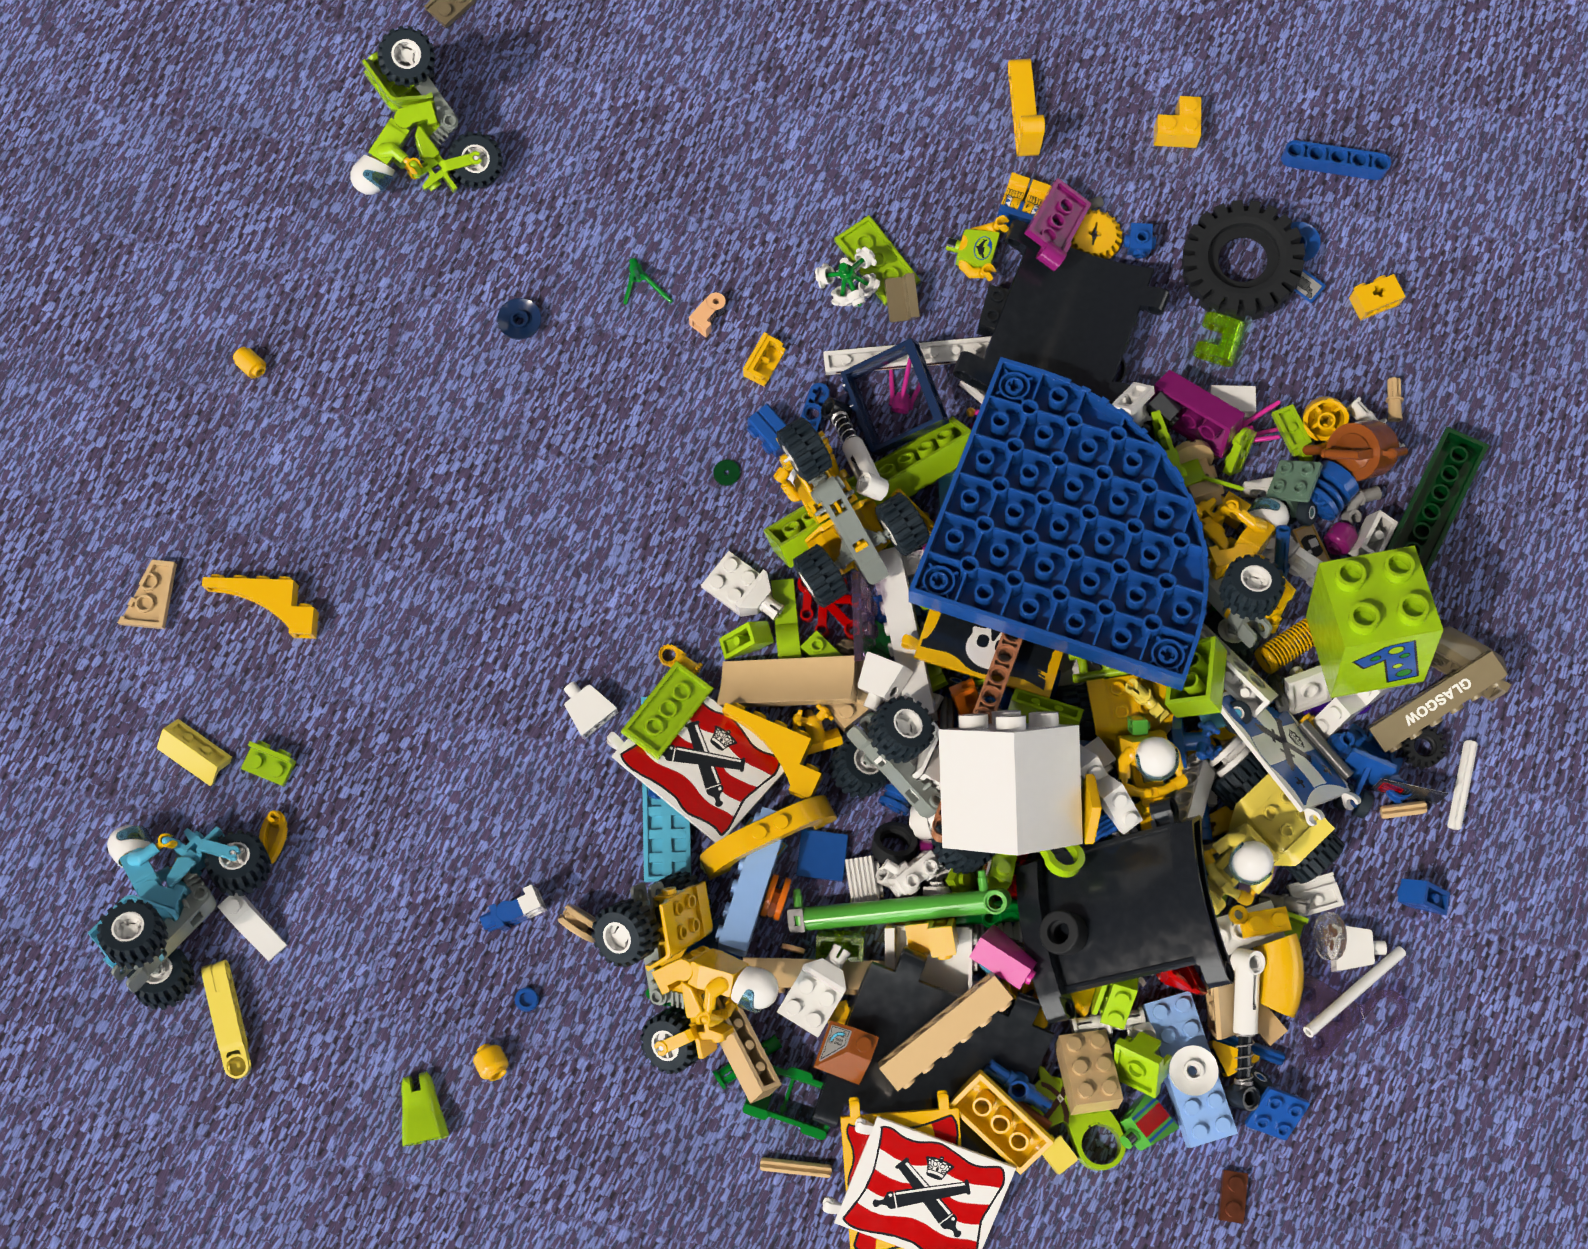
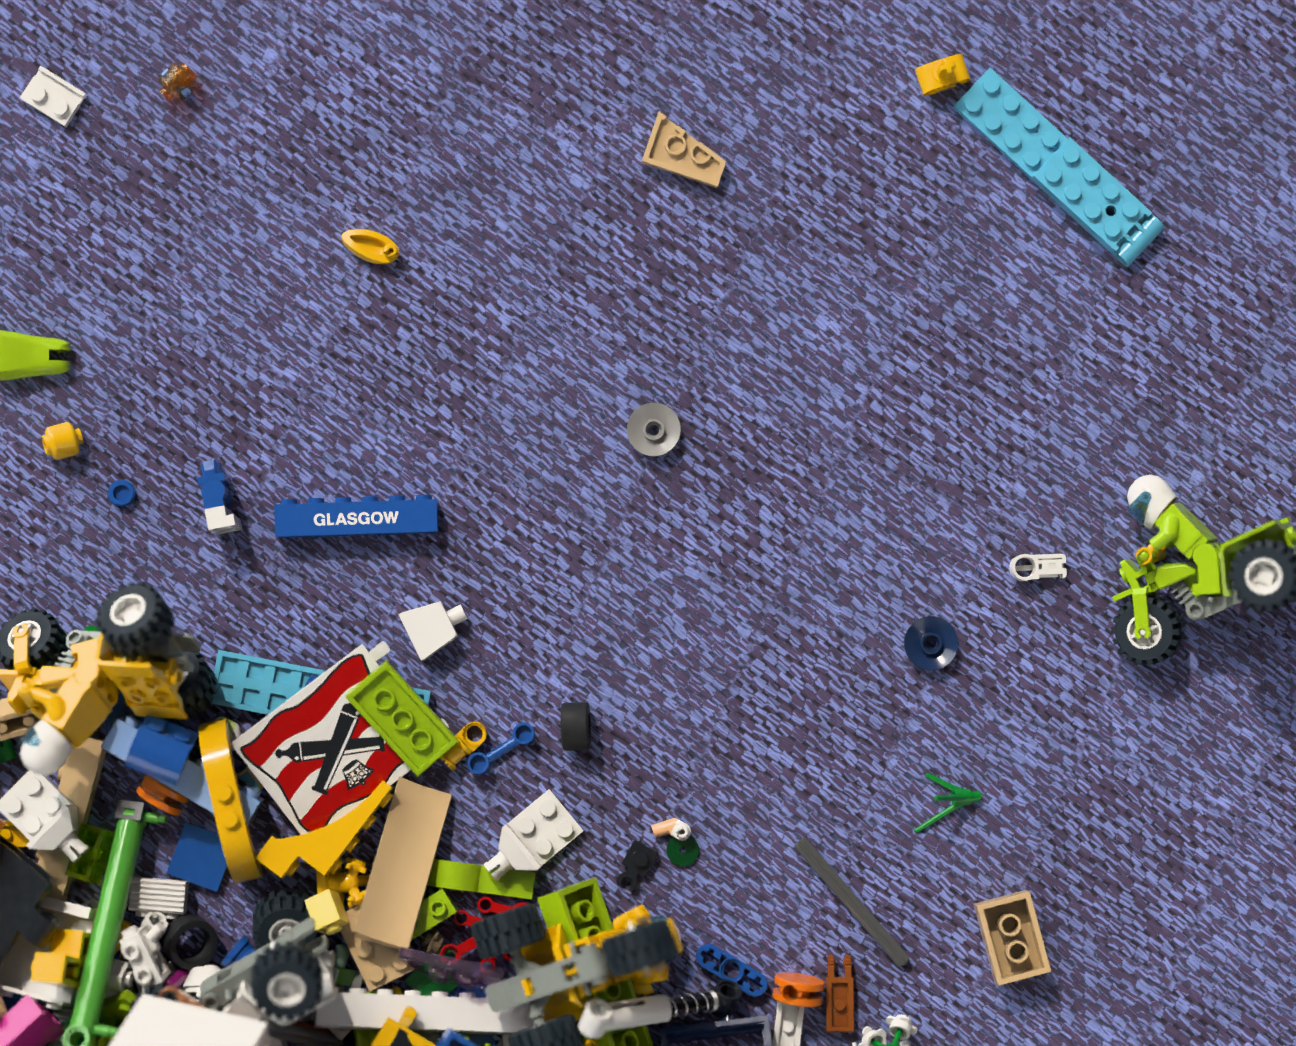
camera: 100 degrees right, 10 degrees up
(53, 407) = (942, 74): none -> yellow beam
(116, 304) = (1059, 167): none -> medium azure hinge
(145, 930) = (271, 93): piece -> none
(154, 1037) = (177, 82): none -> clear orange head
(184, 1148) = (53, 96): none -> white plate
(193, 751) = (488, 173): light yellow panel -> none
(227, 1018) = (179, 163): light yellow piece -> none
(249, 362) = (947, 312): yellow brick -> none
(252, 925) = (275, 207): white slope -> none
(268, 763) = (455, 254): lime bracket -> none
(275, 595) = (649, 294): yellow arch -> none
(381, 559) = (653, 415): none -> light grey dish
(441, 252) = (1042, 566): none -> white piece
(508, 792) = (356, 518): none -> blue brick
(577, 922) = (187, 570): tan head -> none
(644, 573) = (575, 726): none -> black tyre
(661, 616) = (481, 763): none -> blue bar
(706, 312) = (894, 879): light nougat leg -> none
(710, 481) = (672, 827): none -> arm
(736, 210) = (1012, 937): none -> tan brick
(736, 896) = (161, 749): none -> blue brick
(737, 336) = (852, 902): none -> dark grey axle
(743, 503) = (638, 860): none -> black plate
(746, 639) = (470, 827): lime slope -> none
(764, 359) = (812, 927): yellow hinge -> none
(765, 425) = (718, 915): blue brick -> none
(792, 948) = (103, 800): light nougat piece -> none
(813, 328) = (839, 997): none -> dark orange hinge
(815, 356) = (798, 989): none -> orange head
(837, 731) = (327, 912): none -> light yellow brick
(882, 679) = (371, 973): white torso -> none

